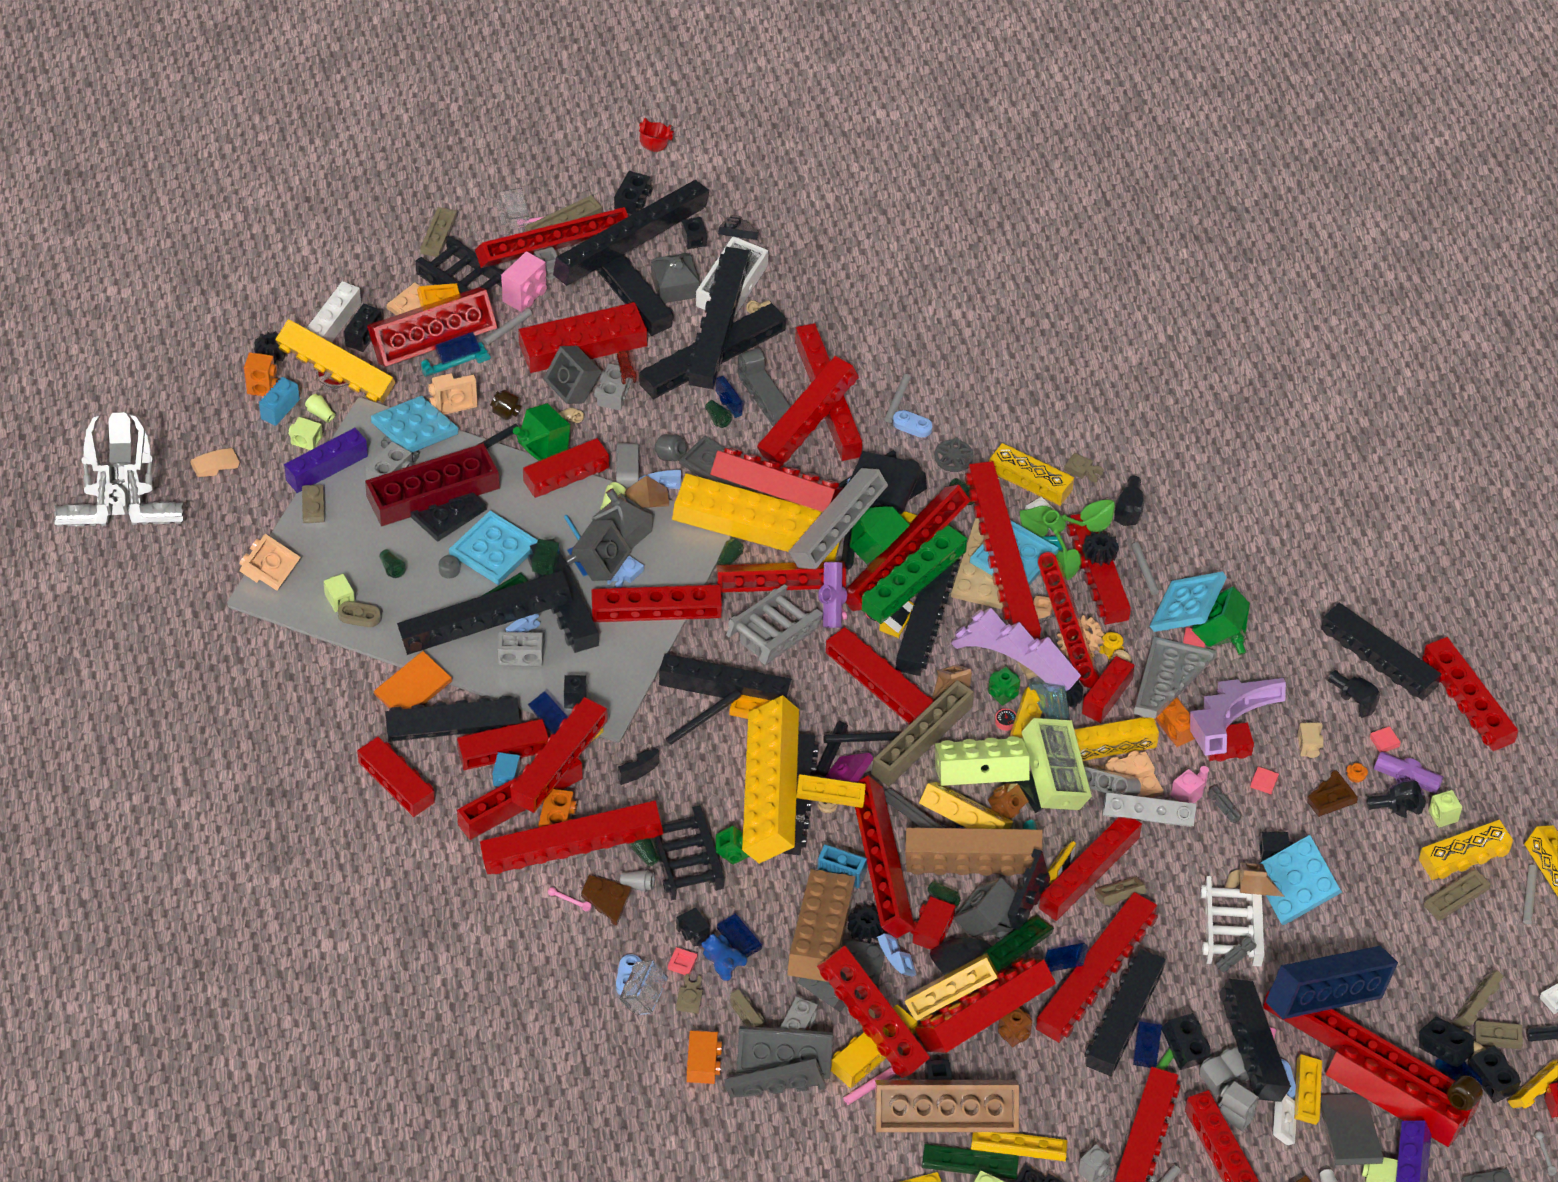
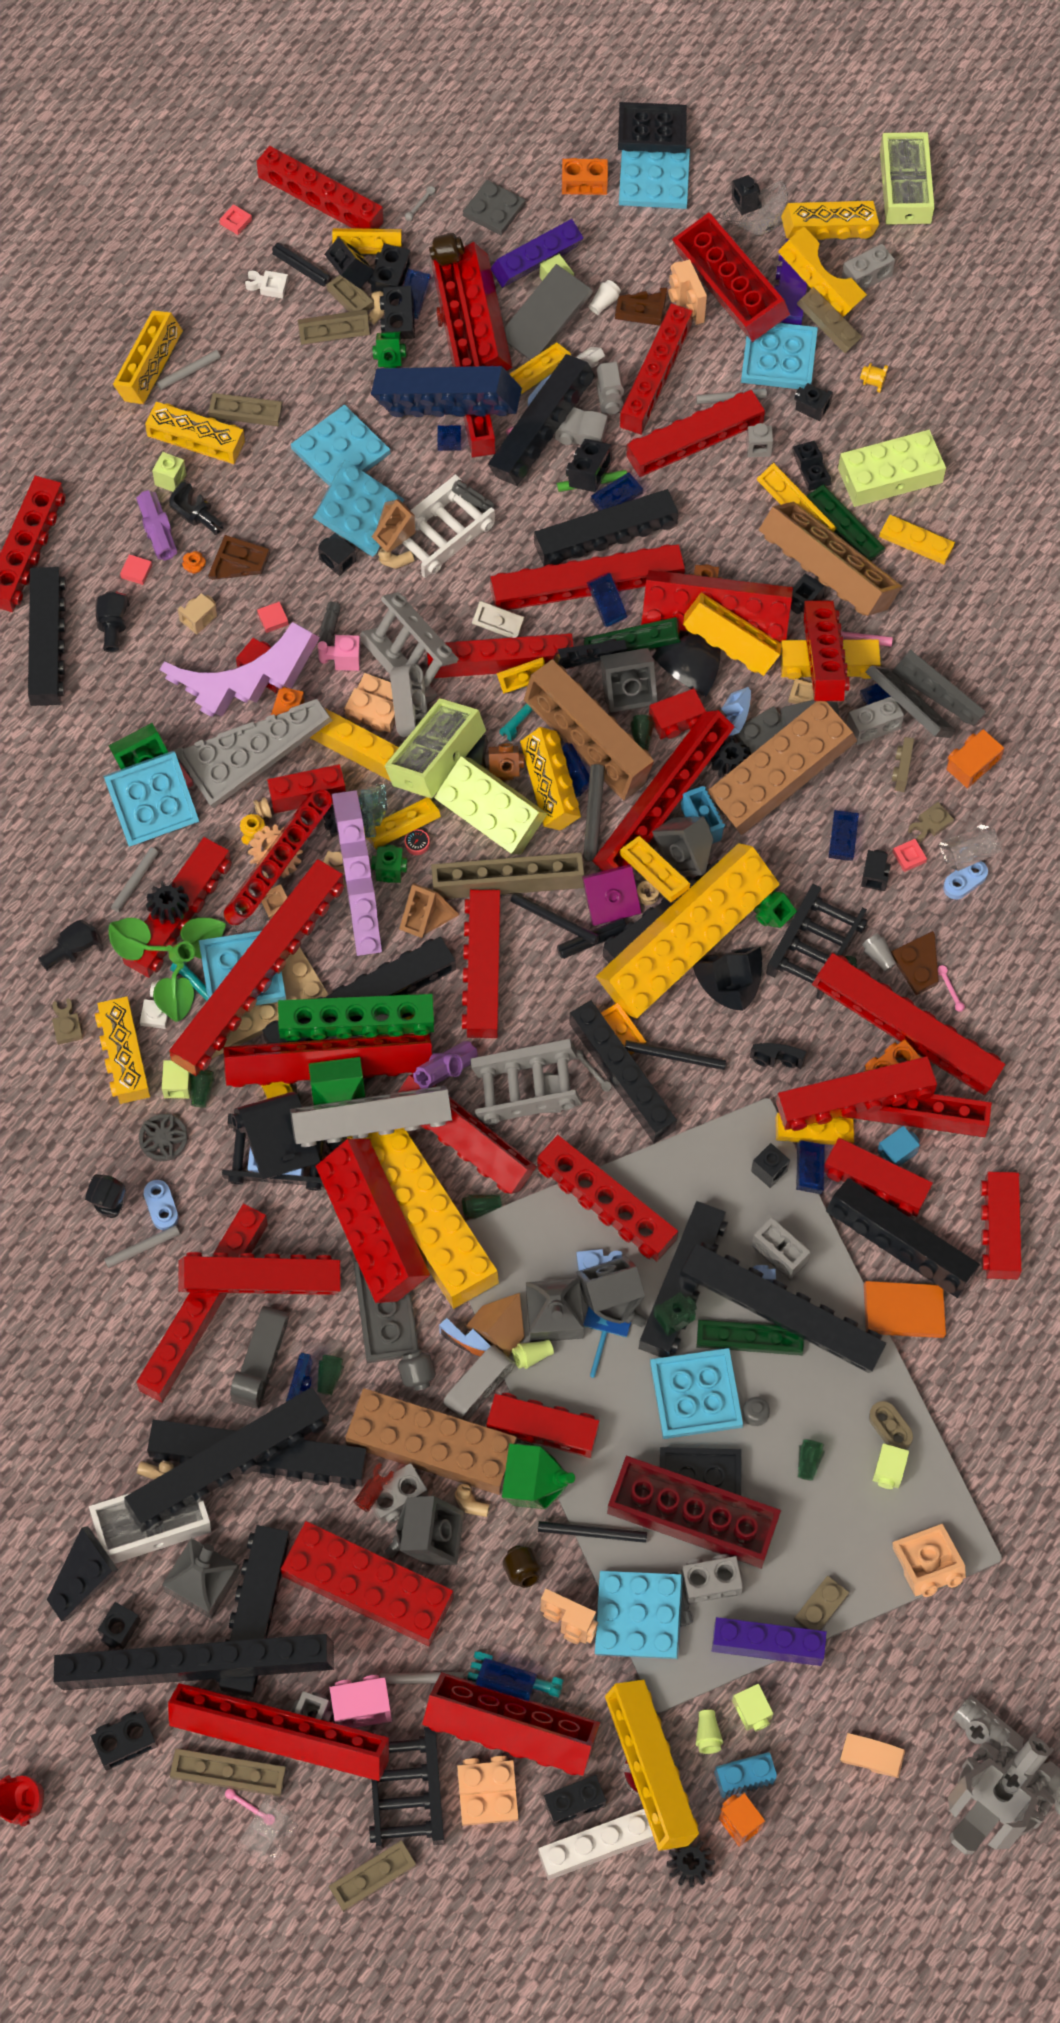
camera: 135 degrees left, 15 degrees up
(435, 293) = (468, 1758): light orange plate -> none
(629, 417) = (430, 1441): none -> medium nougat brick
(717, 789) = (731, 977): none -> black brick
(723, 956) = (879, 816): blue animal -> none
(833, 827) = (685, 844): none -> dark grey slope
(939, 383) = (106, 1194): none -> black piece
(1365, 922) = (339, 439): none -> medium azure plate
(1418, 1009) = (389, 350): none -> green brick
(1526, 1040) = (349, 262): none -> black brick

